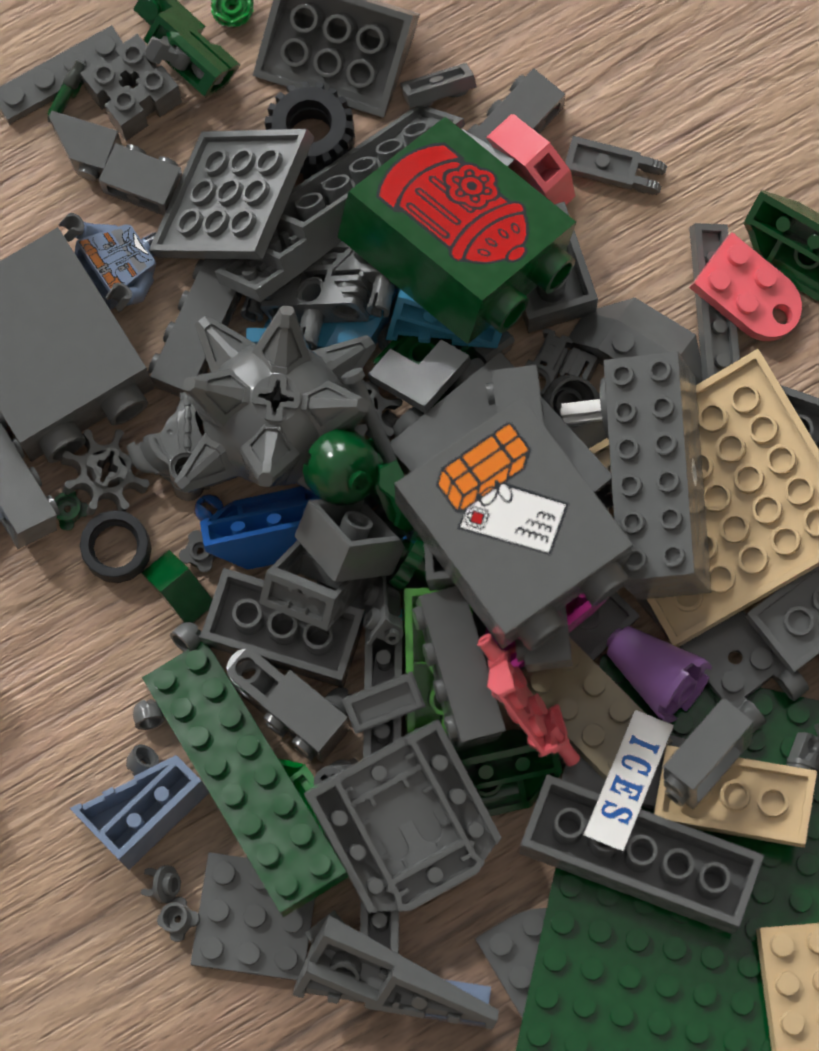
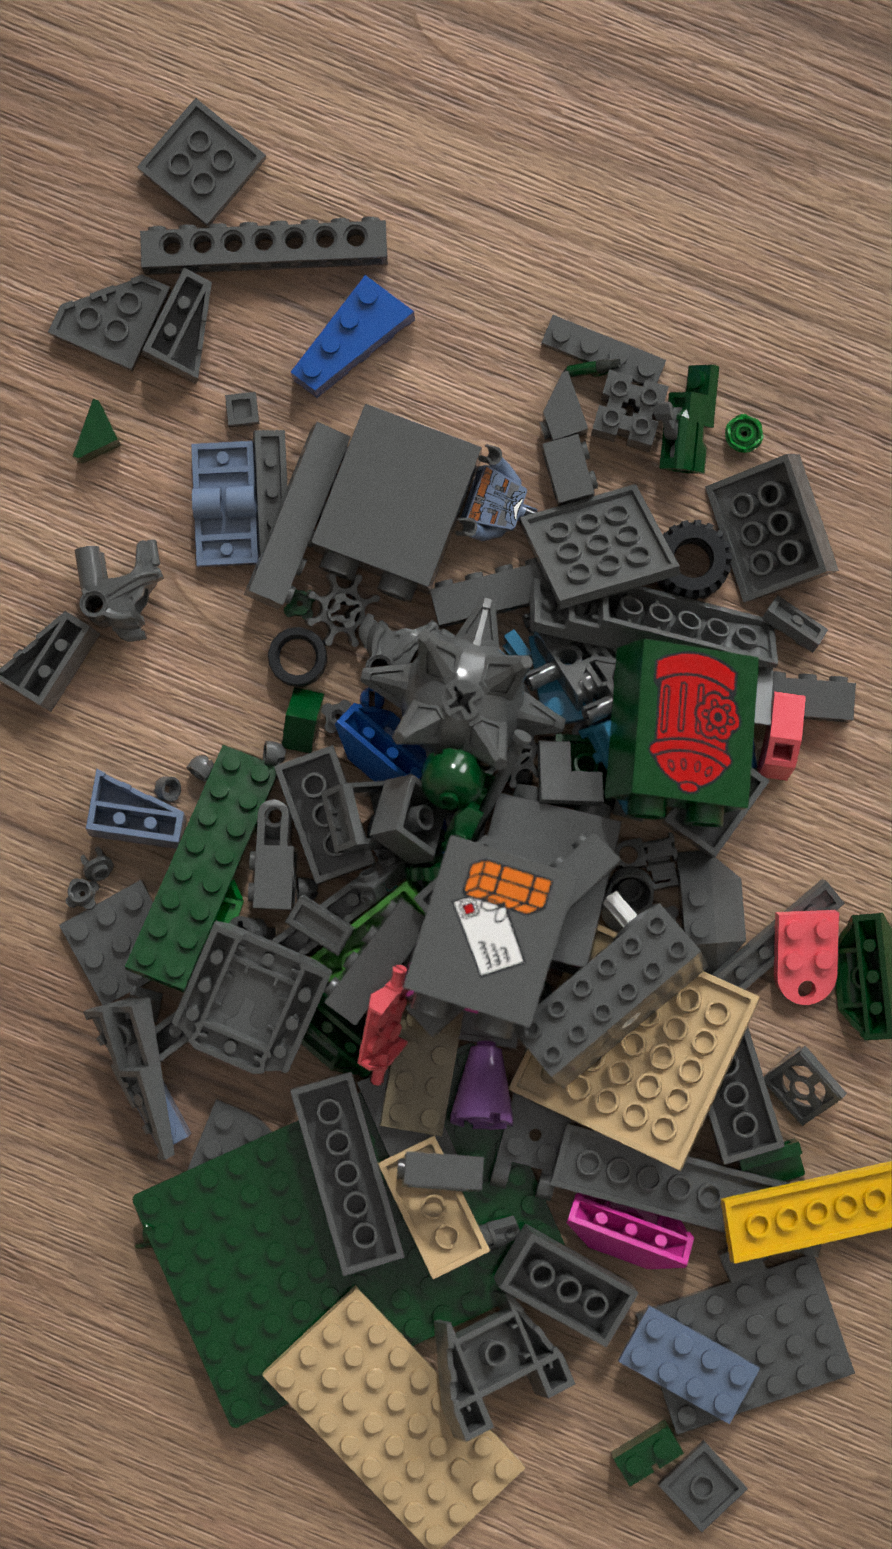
camera: 55 degrees right, 10 degrees up
(613, 165) = (828, 789): dark grey hinge -> none
(628, 780) = (389, 1129): white sticker -> none

